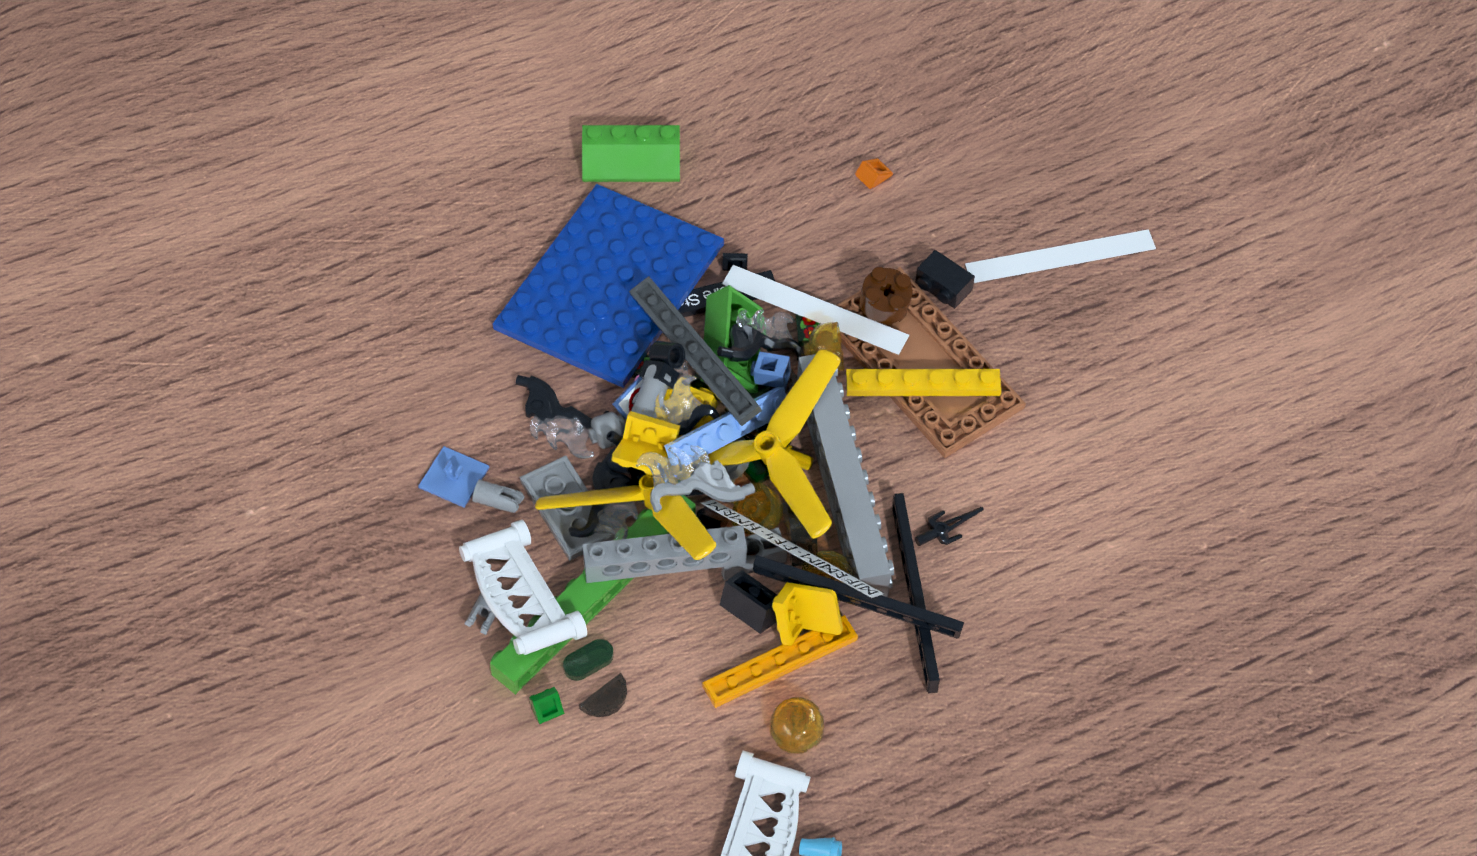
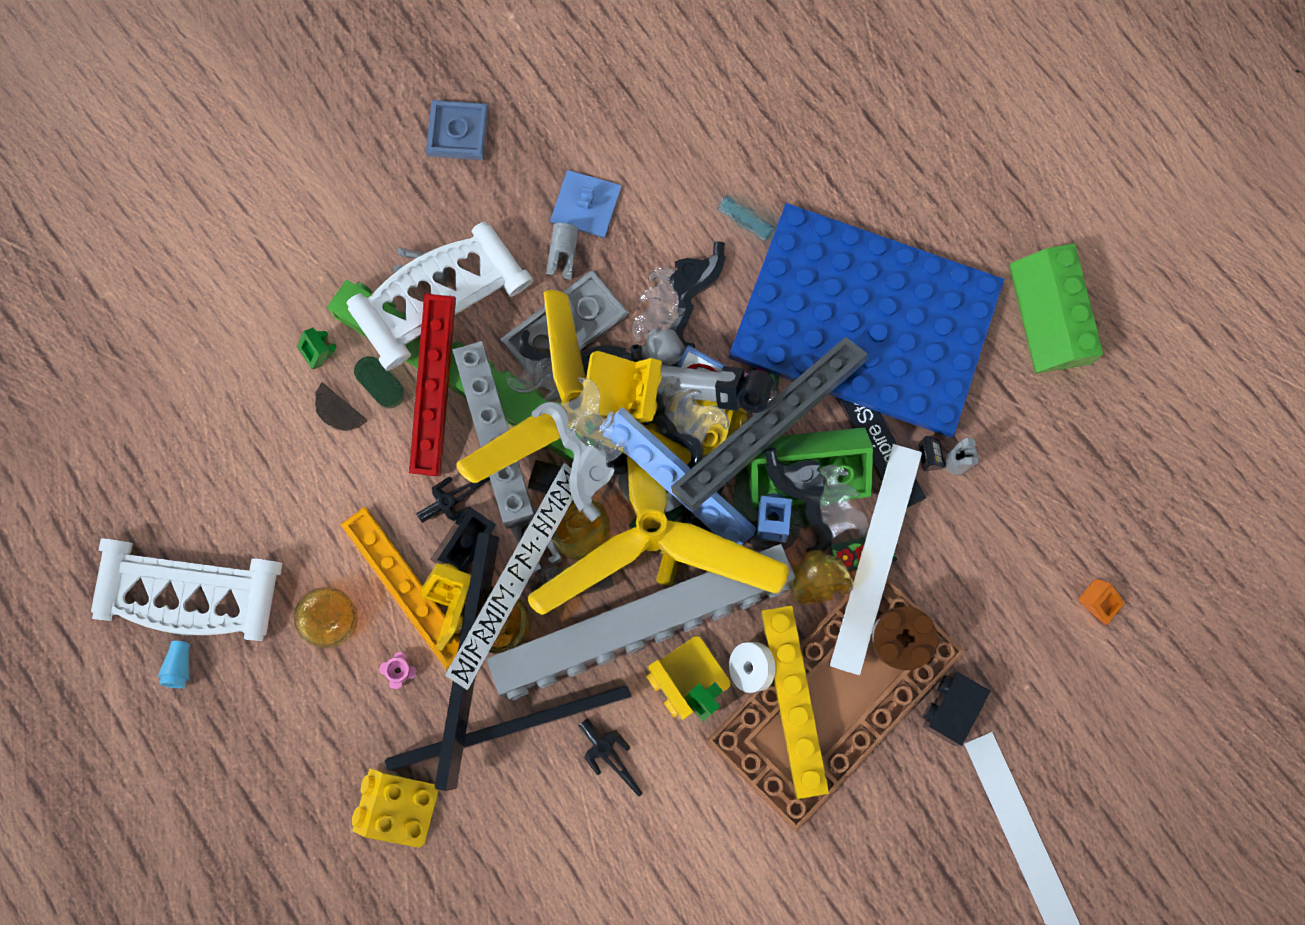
camera: 80 degrees right, 20 degrees up
(356, 568) = (457, 130): none -> sand blue tile
(498, 355) = (745, 218): none -> clear light blue pin
(605, 604) = (432, 384): none -> red tile
(709, 618) = (446, 501): none -> black piece
(744, 236) = (966, 452): none -> light grey hinge
(849, 667) = (388, 669): none -> bright pink plate
(893, 458) = (682, 671): none -> yellow bracket
(894, 419) = (763, 667): none -> white piece
(914, 443) = (703, 701): none -> green tile
(969, 690) = (394, 809): none -> yellow bracket

